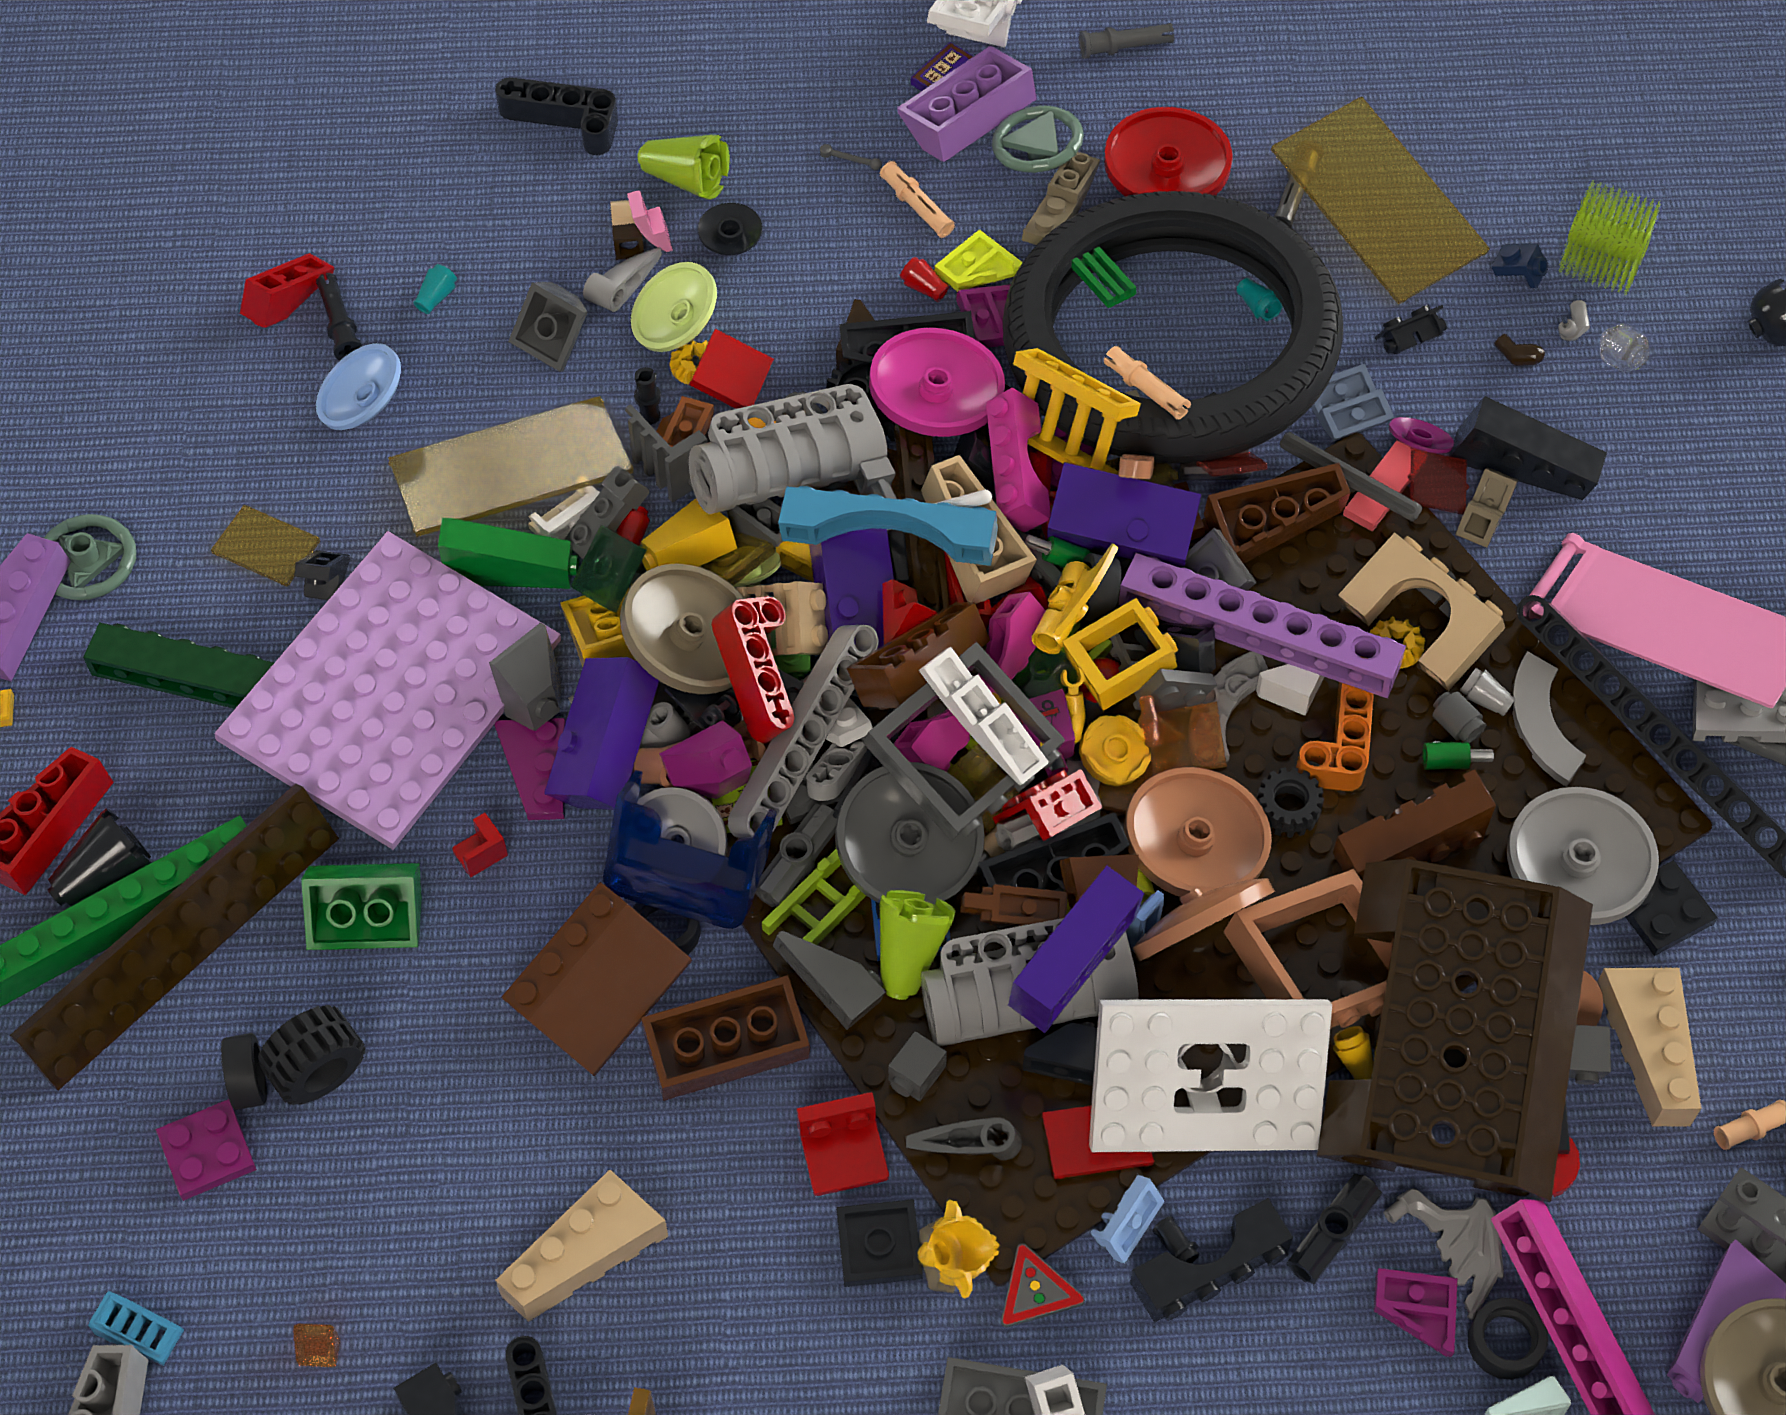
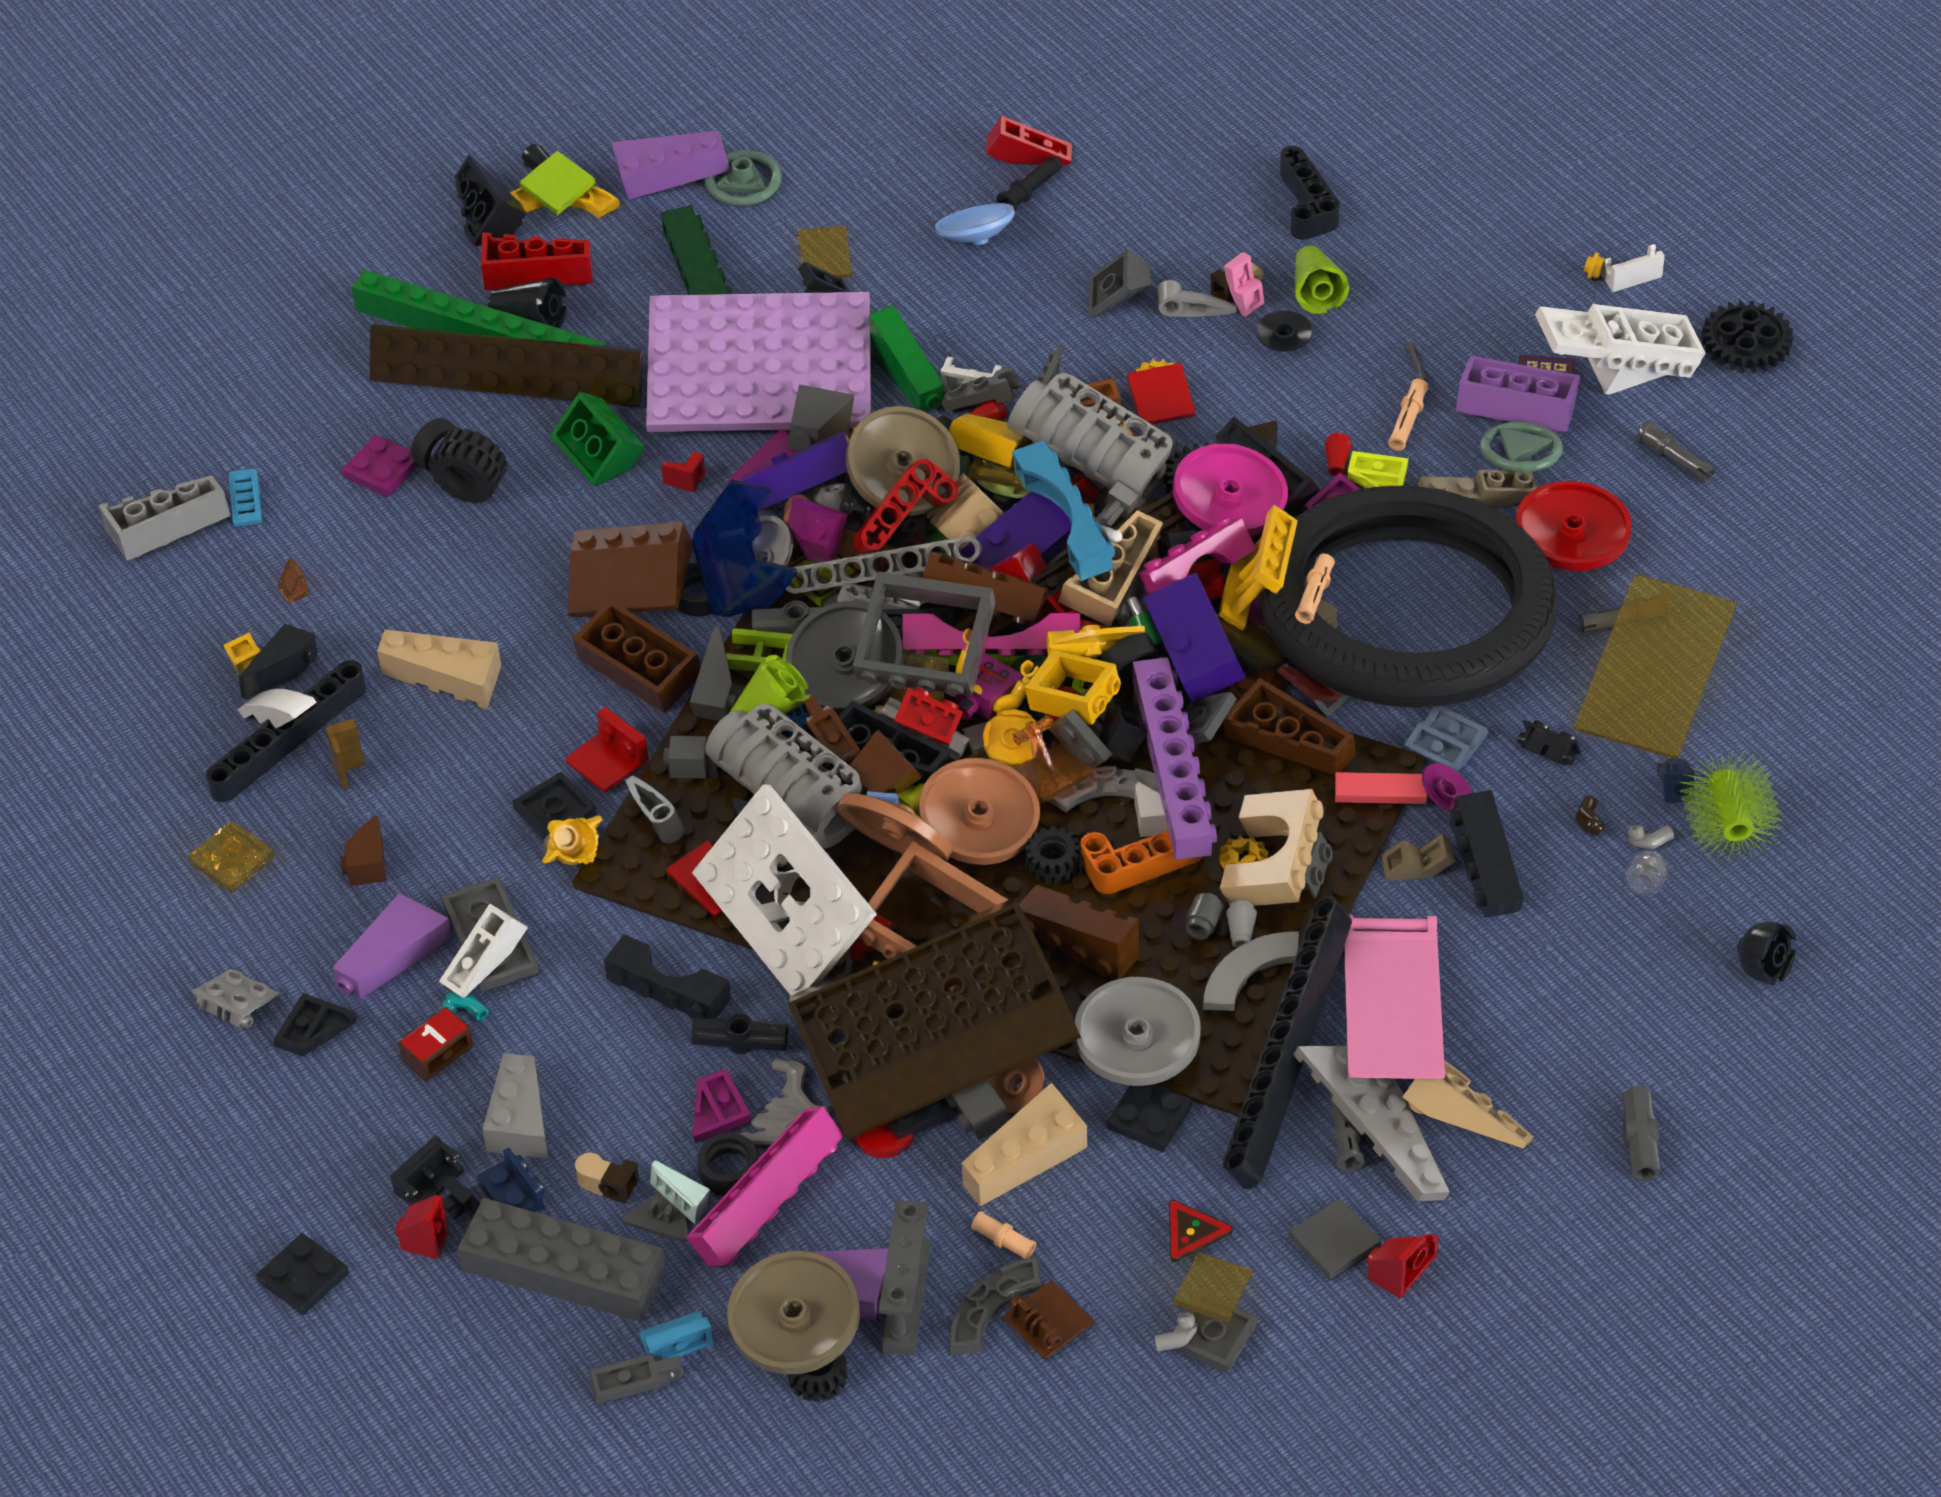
camera: 60 degrees right, 10 degrees down
(436, 286) = (1095, 216): teal cone -> none
(509, 465) = (982, 326): clear yellow piece -> none
(608, 568) = (946, 406): clear green tile -> none
(647, 395) = (1094, 358): black pin -> none
(674, 307) = (1184, 336): yellowish green dish -> none
(983, 717) = (939, 623): white slope -> none
(1036, 1290) = (577, 898): piece -> none
(1075, 949) = (802, 758): dark purple brick -> none
(1108, 274) = (1406, 515): green tile -> none
(1130, 1220) = (665, 923): light blue plate -> none
(1136, 466) = (1233, 616): nougat beam -> none
(1175, 1240) = (669, 956): black pin -> none
(1355, 479) = (1363, 759): dark grey axle -> none
(1438, 481) = (1413, 816): clear red piece -> none
(1453, 755) = (1169, 927): green piece -> none

